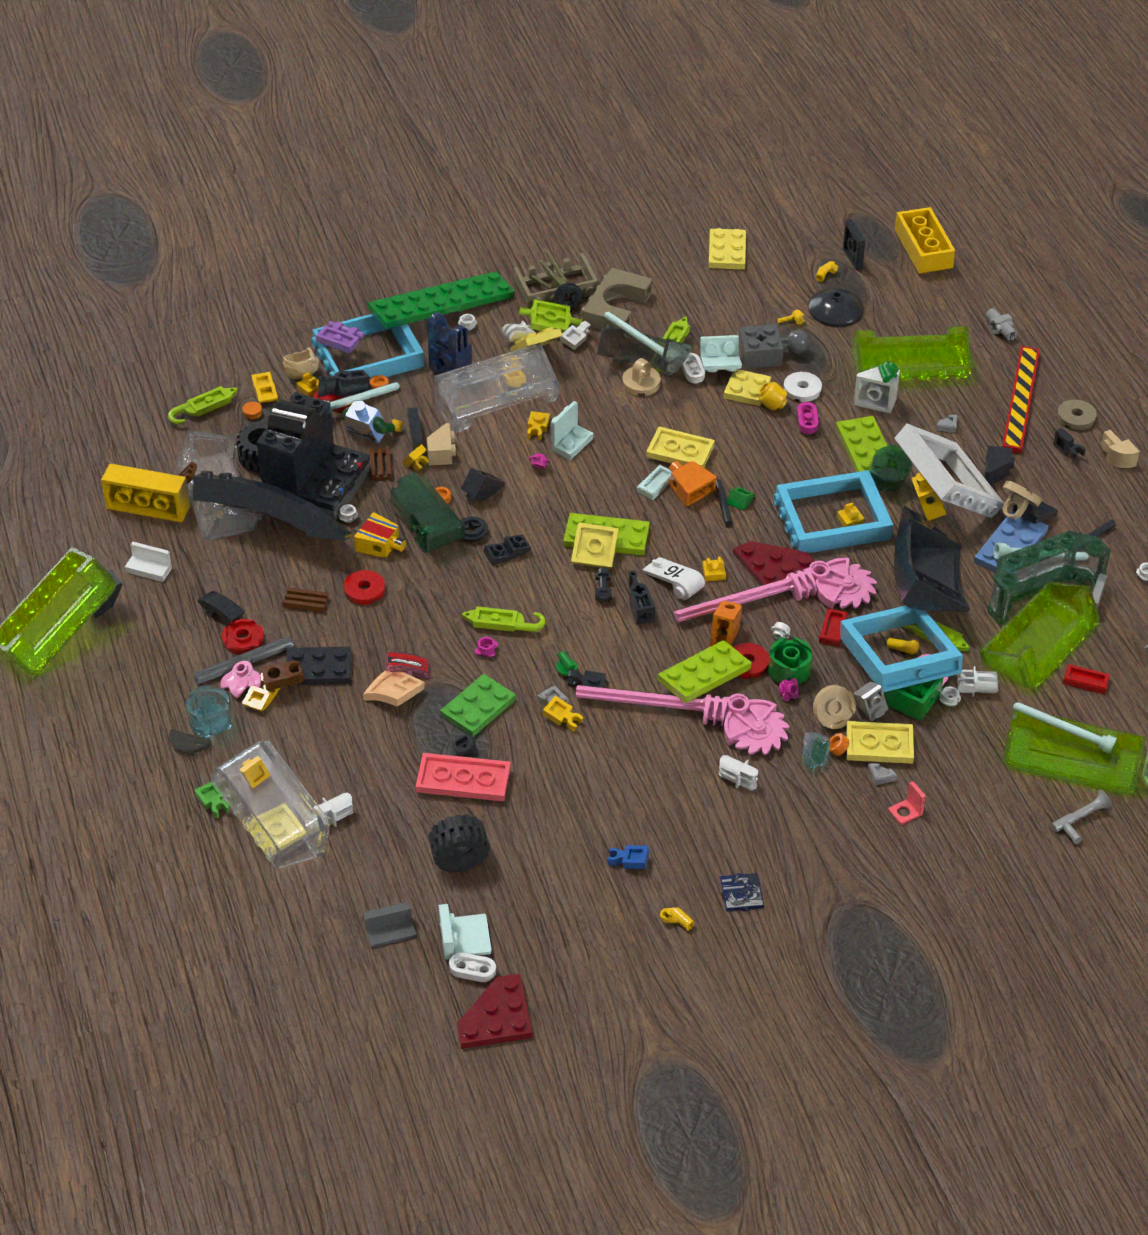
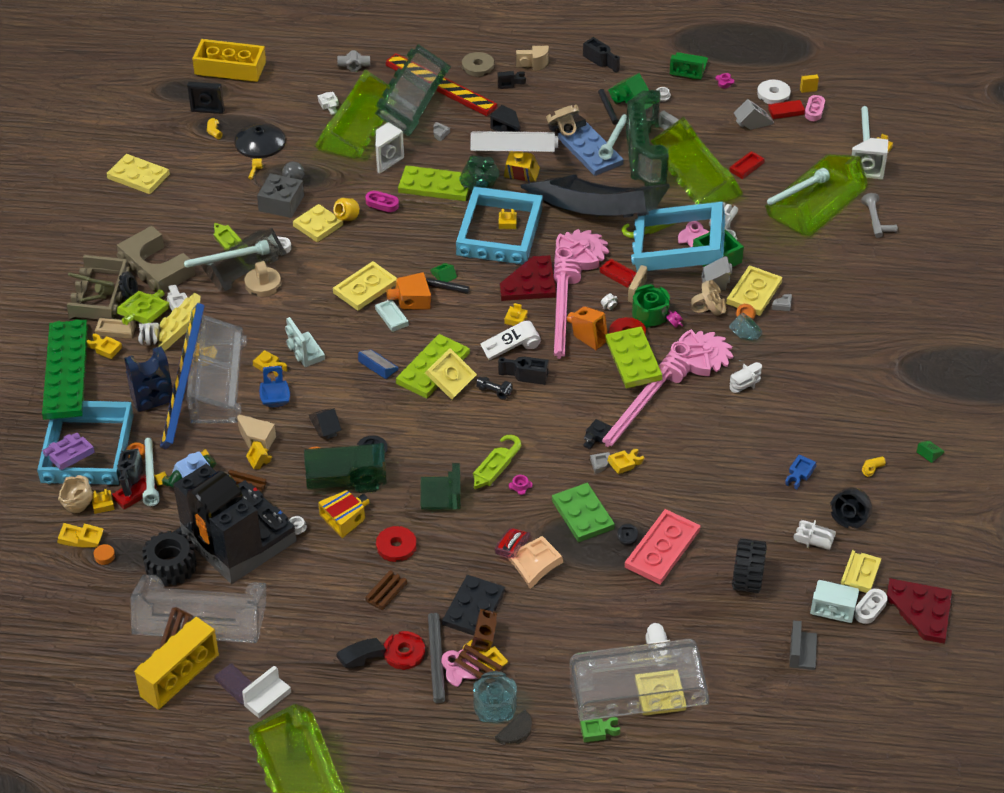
camera: 65 degrees left, 0 degrees up
(156, 537) = (233, 681): none -> clear purple tile
(203, 403) = (69, 588): lime plate -> none
(234, 683) = (467, 649): none -> reddish brown tile
(254, 771) = (616, 671): yellow tile -> none
(269, 500) = (269, 564): black slope -> none
(415, 428) = (232, 446): black beam -> none
(444, 594) = (442, 491): none -> clear green bracket
(467, 321) = (102, 364): white plate -> none
(490, 315) = (106, 347): none -> yellow plate
(495, 350) = (182, 376): none -> blue tile
(500, 437) = (275, 392): none -> blue piece
(510, 549) = (411, 433): black slope -> none
(513, 309) = (115, 328): none -> tan tile
(516, 946) = (861, 571): none -> light yellow plate
(539, 460) = (319, 376): dark pink plate -> none
(543, 888) = (814, 535): none -> white arm
(565, 664) = (572, 440): green plate -> none
(584, 494) = (377, 363): none -> blue slope
(598, 911) = (851, 507): none -> black cylinder
(720, 353) = (270, 217): light aqua bracket -> none
(732, 962) = (929, 451): none -> green slope
(741, 892) = (861, 421): piece -> none
(808, 380) = (340, 185): white tile -> none
(824, 642) = (638, 281): none -> tan tile
(888, 371) = (390, 126): green plate -> none
(909, 647) = (665, 240): yellow arm -> none
(914, 803) = (823, 294): coral bracket -> none
(928, 328) = (328, 101): none -> white plate
(967, 374) = (411, 89): none -> clear windscreen
(1118, 540) = (628, 88): none -> green brick

